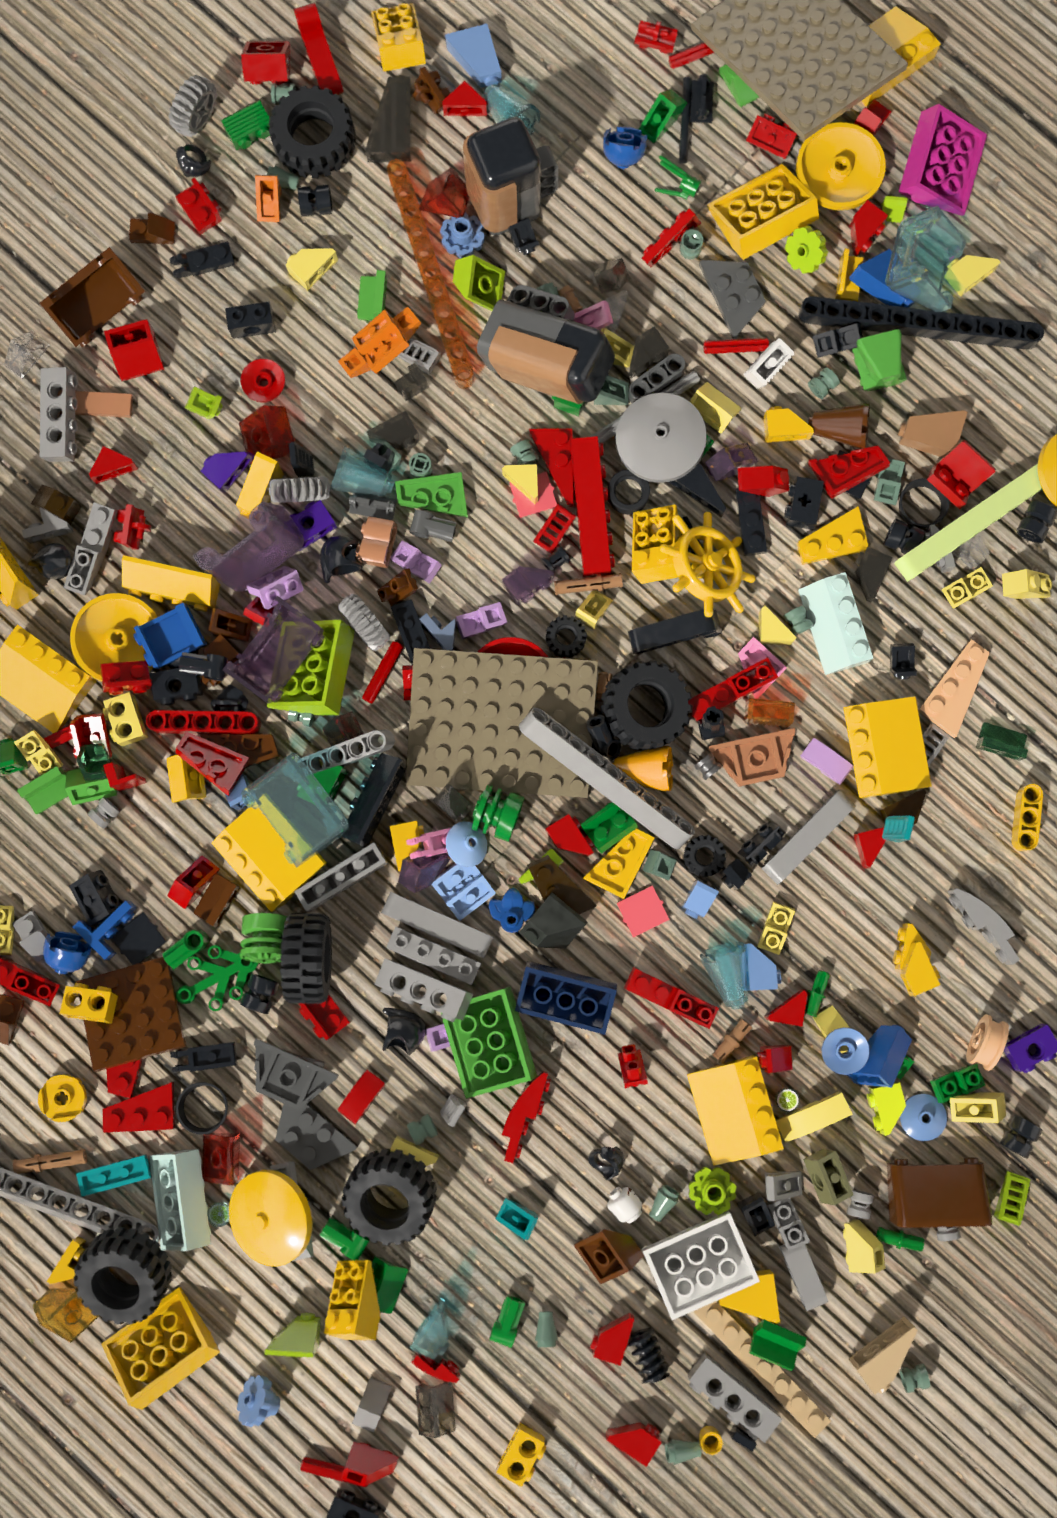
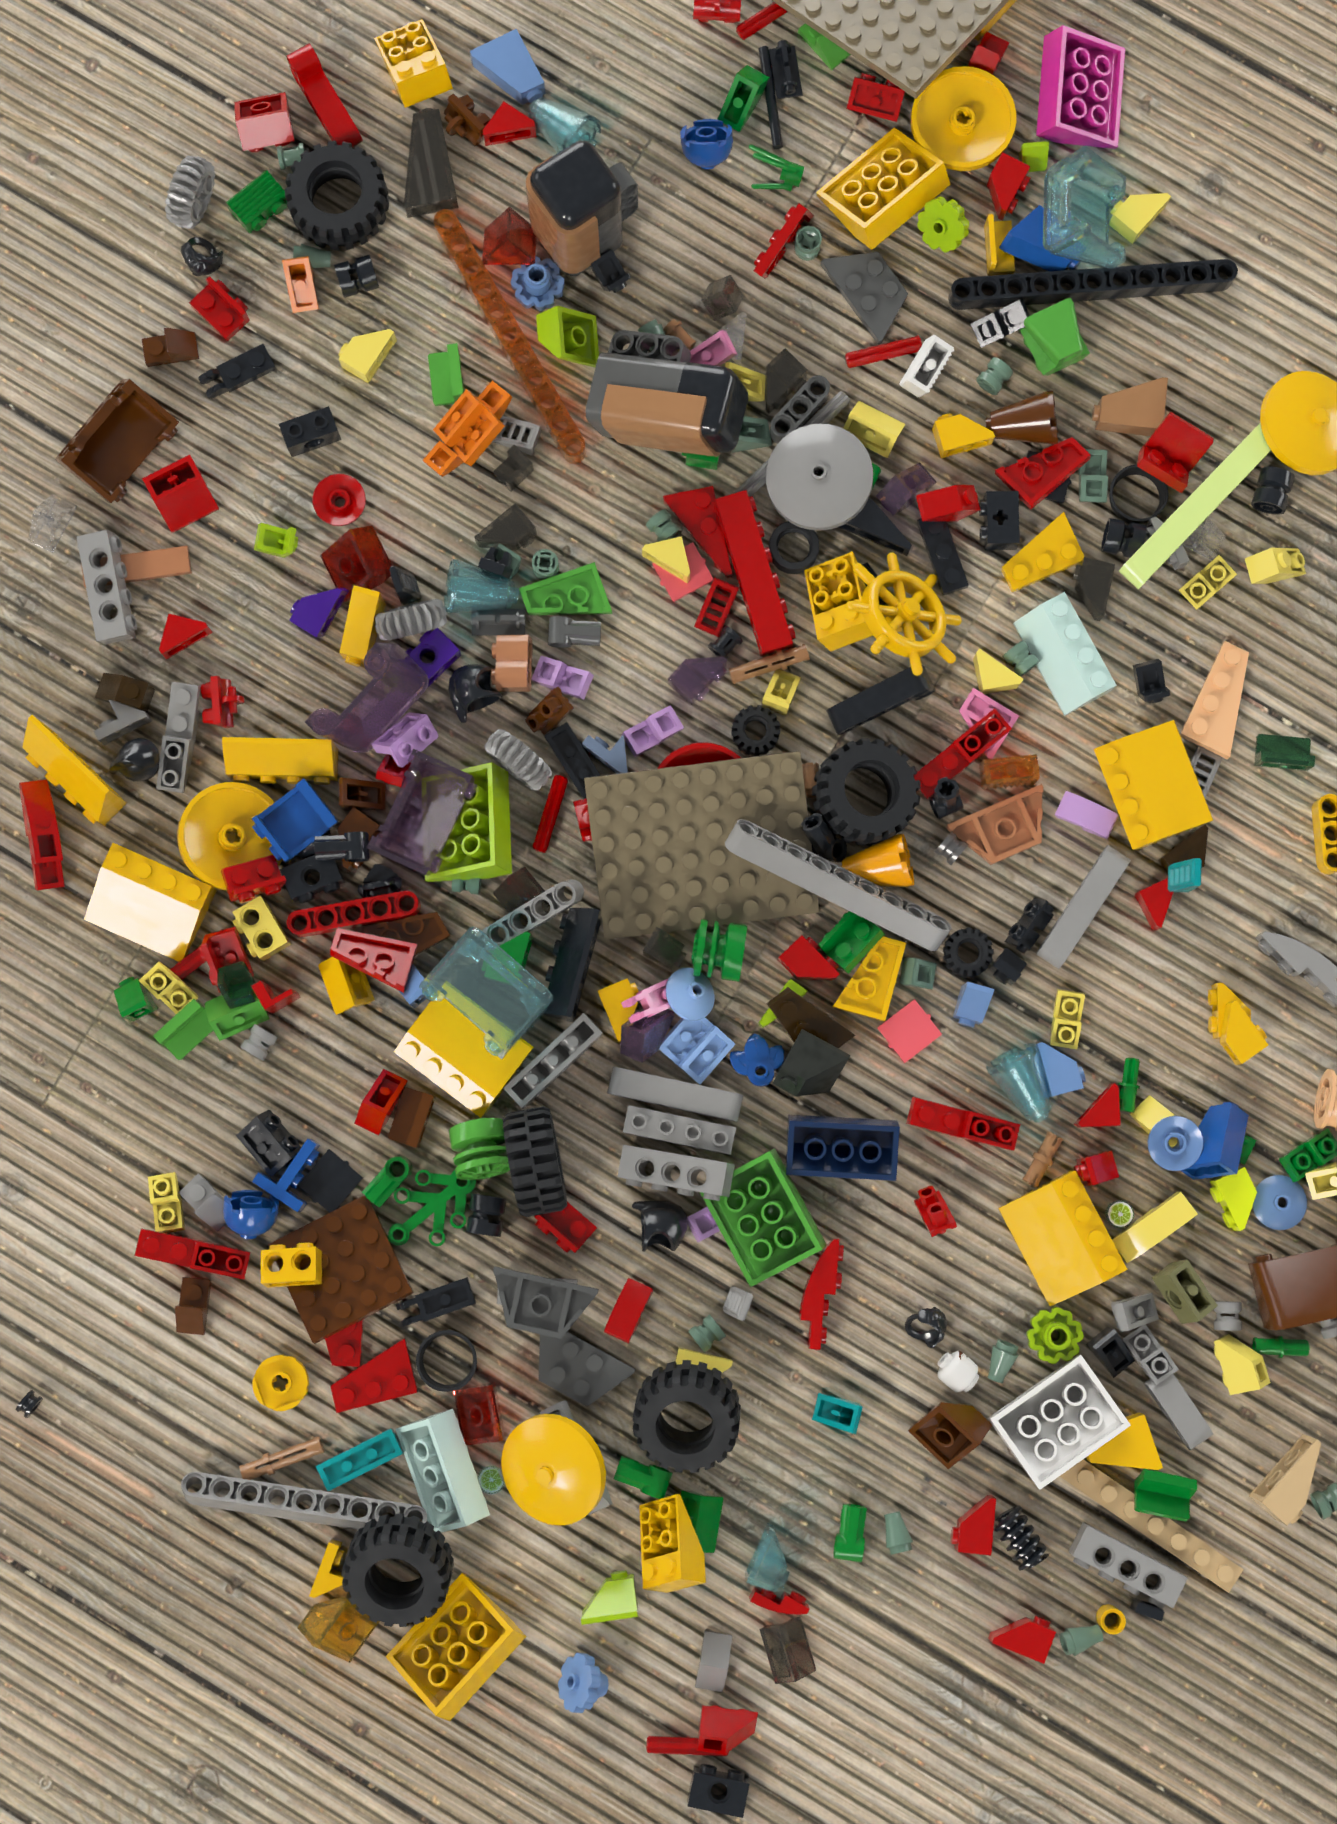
camera: 15 degrees left, 0 degrees up
(517, 1453) = (890, 1680): yellow brick -> none

